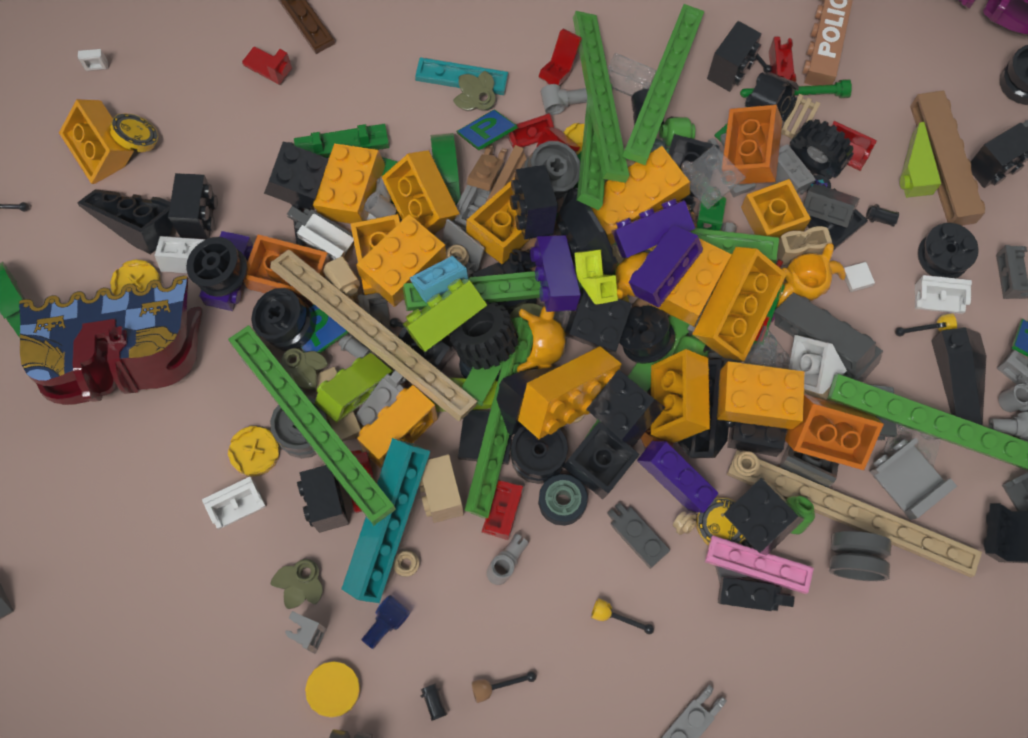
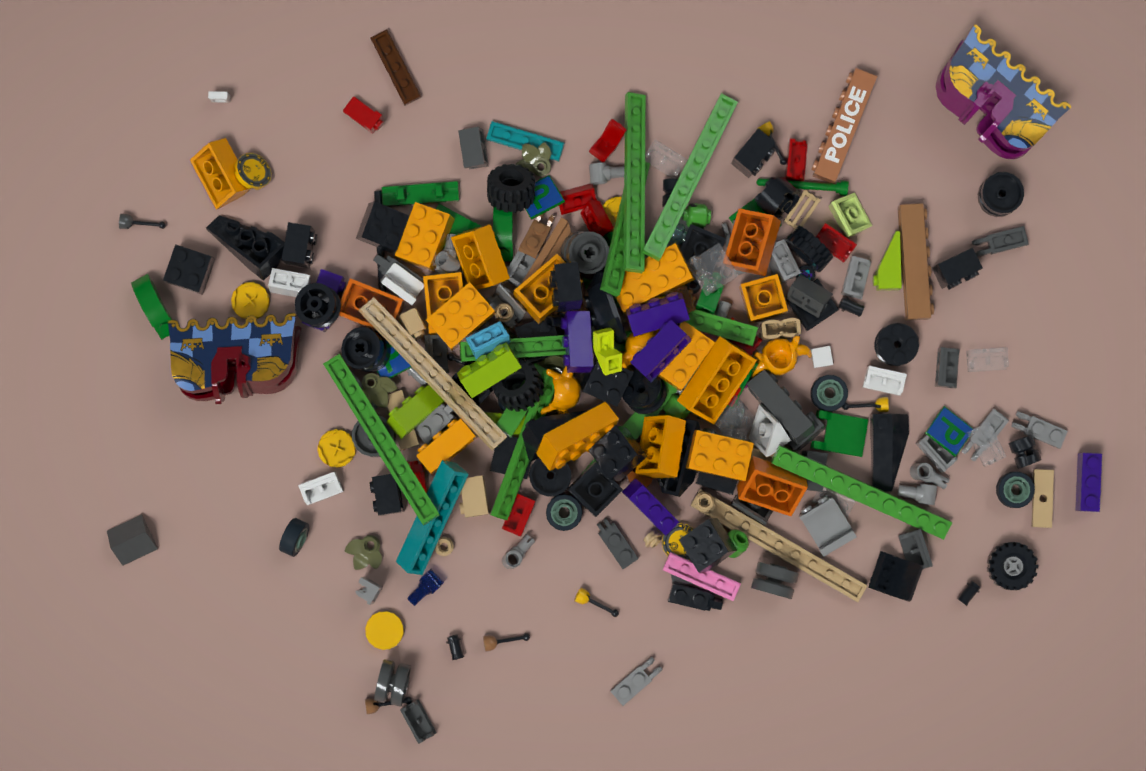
camera: 10 degrees right, 15 degrees up
(55, 250) = (189, 269): none -> black brick
(198, 570) = (294, 537): none -> black wheel
(400, 86) = (473, 148): none -> dark grey hinge
(450, 117) = (511, 188): none -> black tyre
(855, 114) = (850, 215): none -> yellowish green slope
(880, 181) = (856, 277): none -> light grey hinge
(887, 307) = (834, 383): none -> wheel
(904, 365) = (842, 434): none -> green flag

